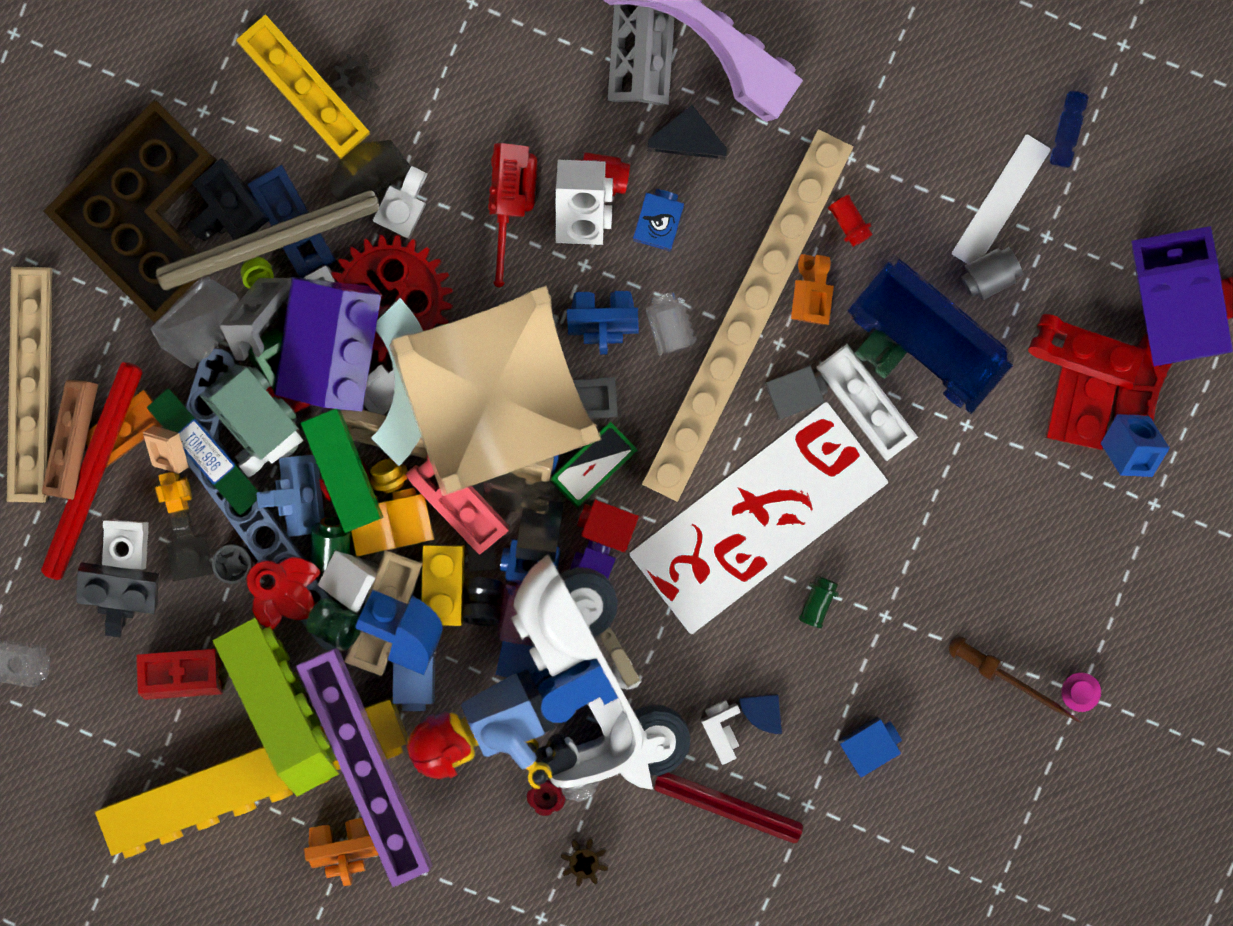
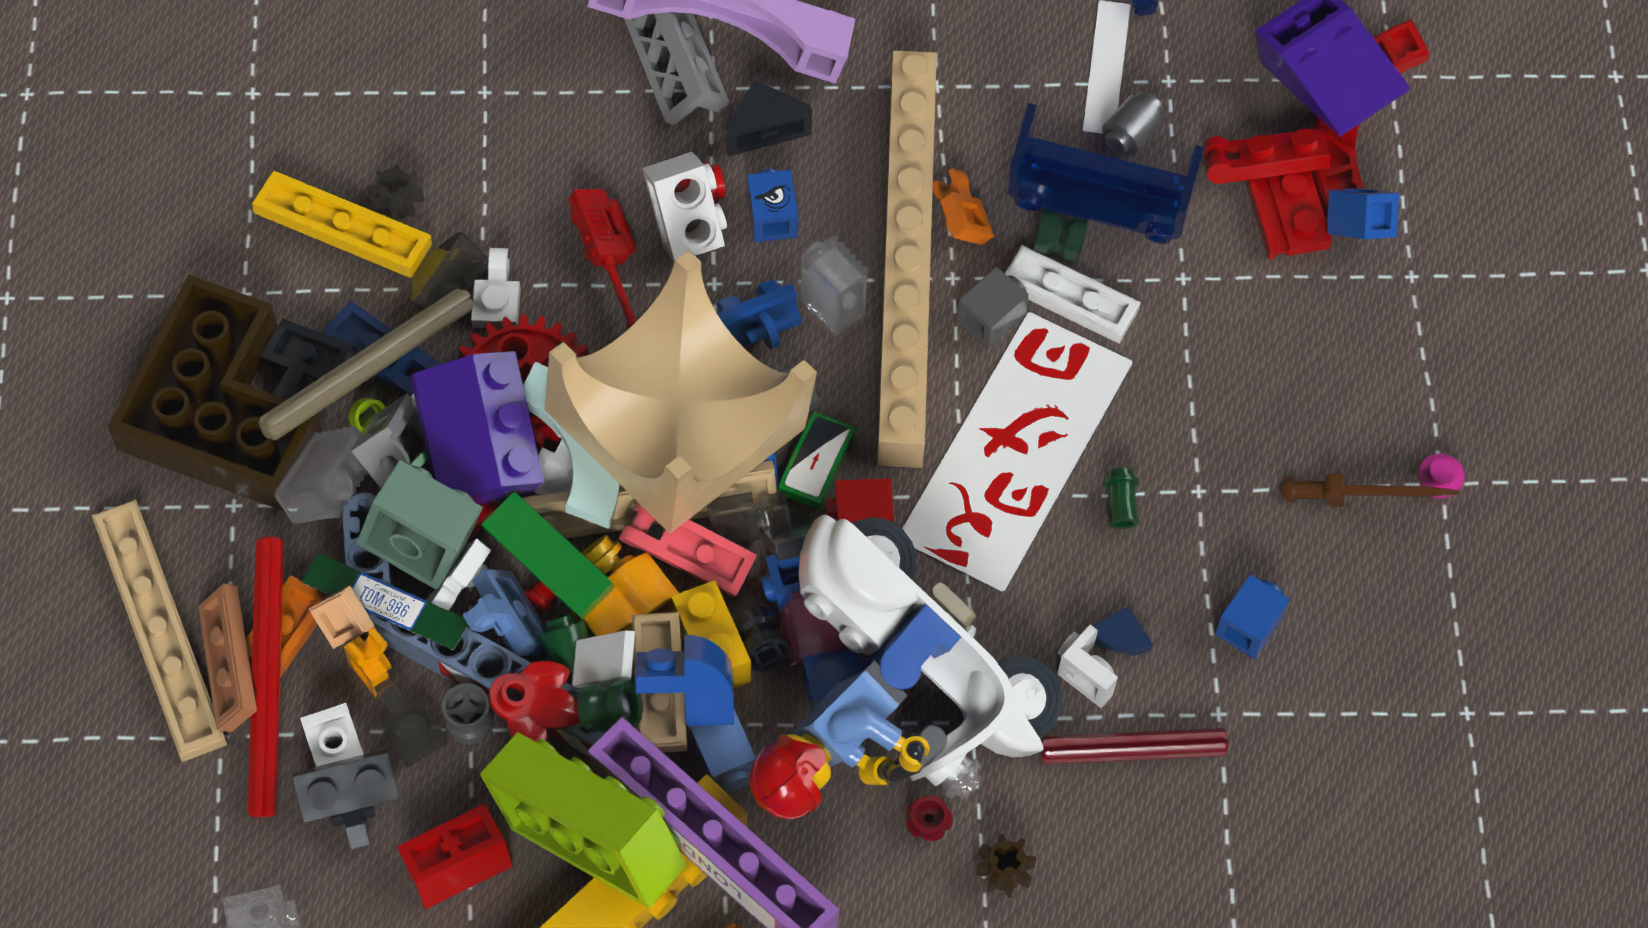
camera: 25 degrees left, 25 degrees down
(850, 221) = (967, 134): red pin -> none

